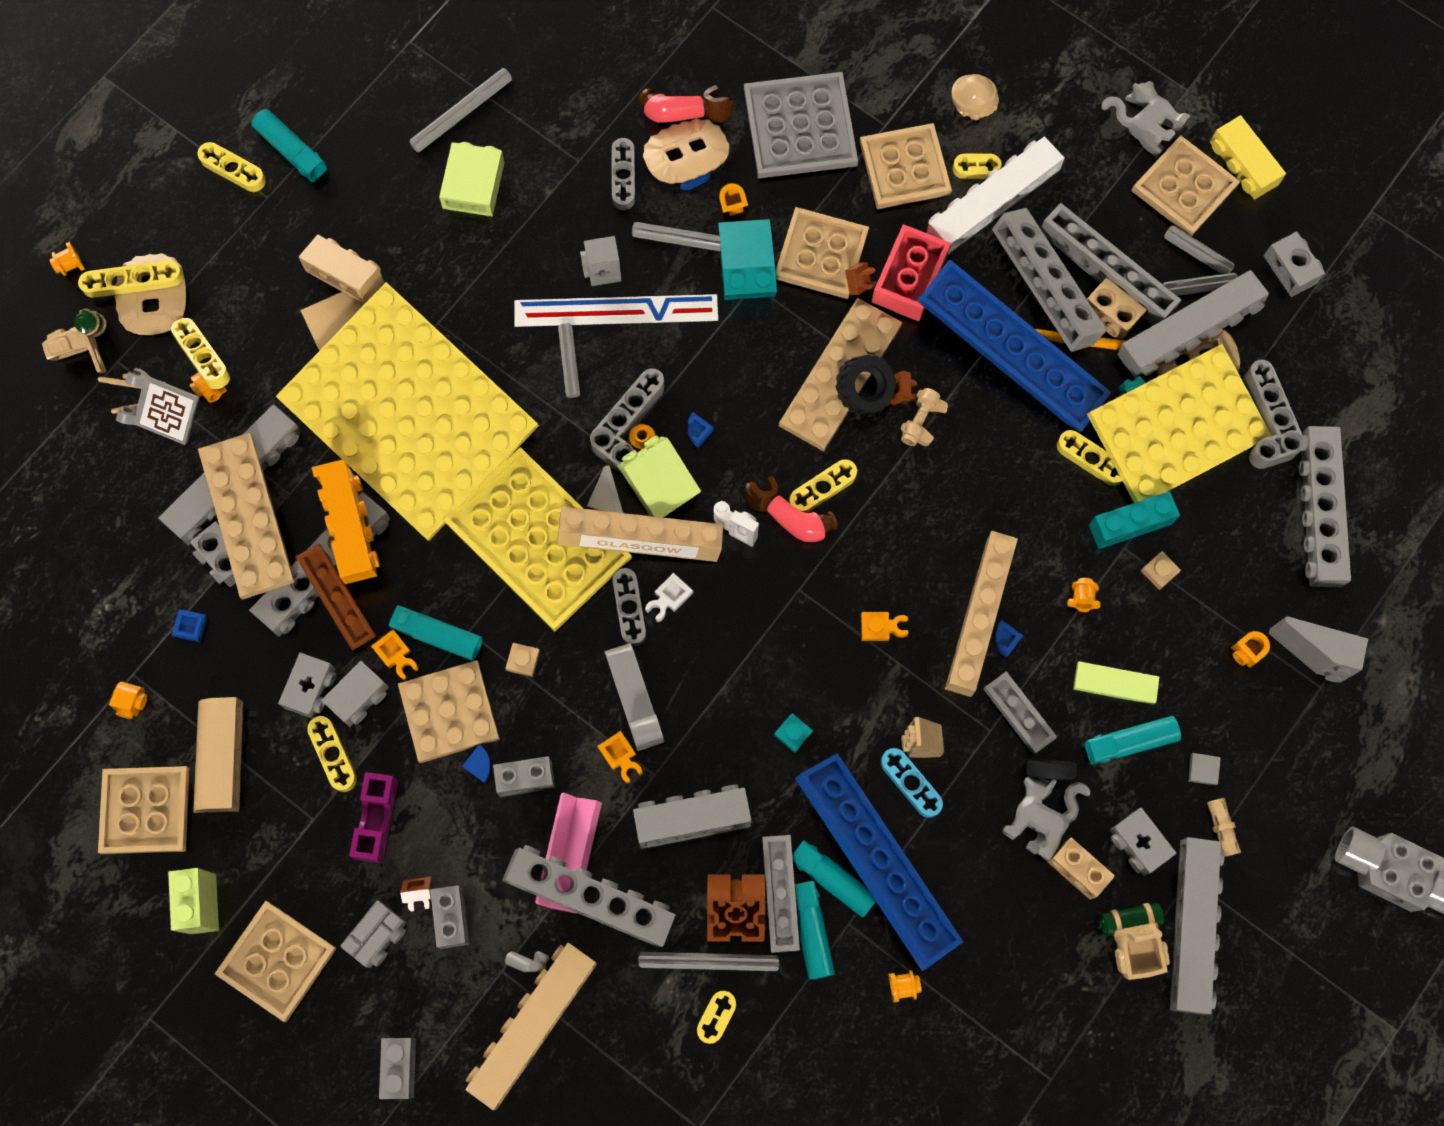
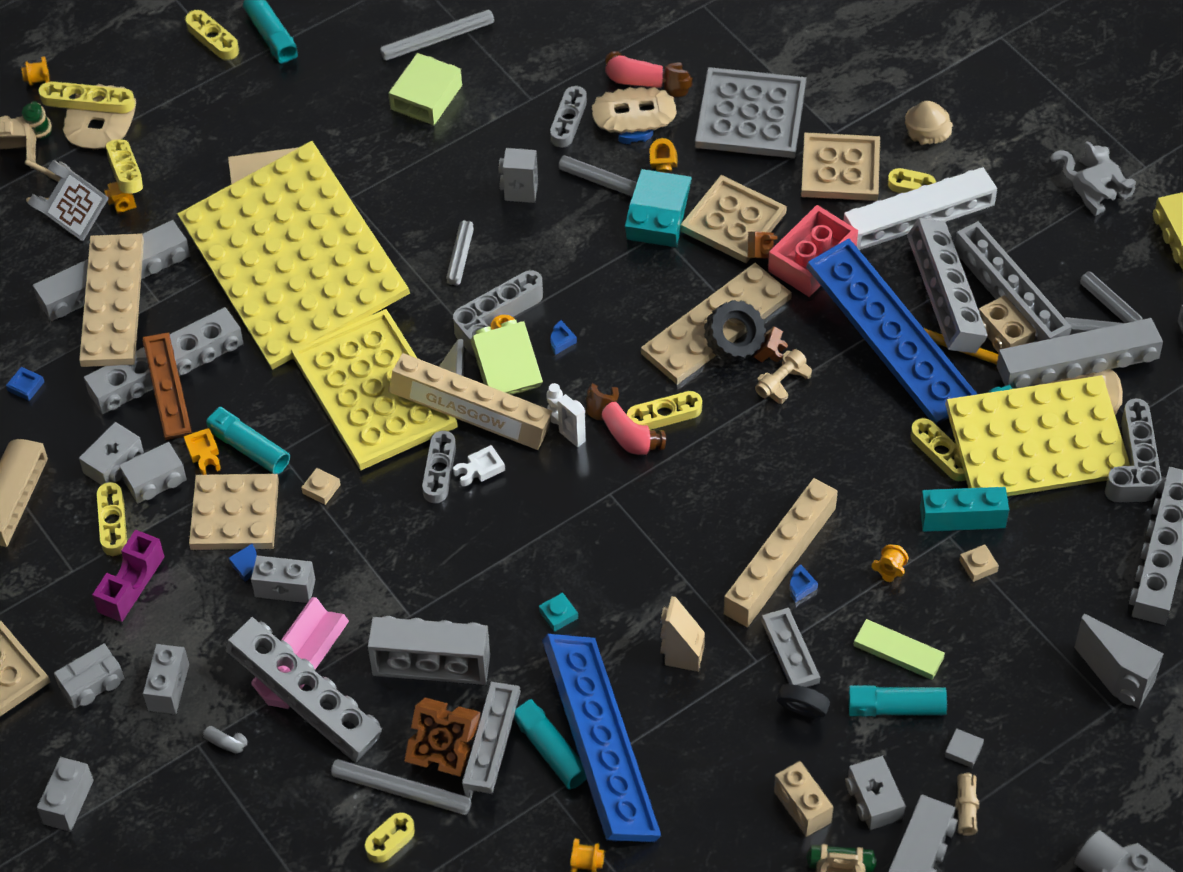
camera: 20 degrees right, 20 degrees down
(215, 558) = (69, 325): light grey brick -> none
(342, 268) = (275, 127): tan brick -> none
(346, 521) = (200, 319): light orange wedge -> none
(416, 890) = (141, 650): tile -> none
(530, 1027) = (206, 793): tan brick -> none
(616, 310) = (521, 224): white sticker -> none
(618, 753) = (382, 586): light orange plate -> none
(634, 697) = (414, 541): light grey beam -> none
(812, 932) = (512, 785): teal piece -> none
(877, 626) = (677, 541): light orange plate -> none
(930, 794) = (659, 695): medium azure beam -> none
(1045, 821) = (778, 745): light grey animal -> none
(1185, 186) = (1114, 242): tan plate -> none
(1251, 648) = (1046, 649): light orange plate -> none

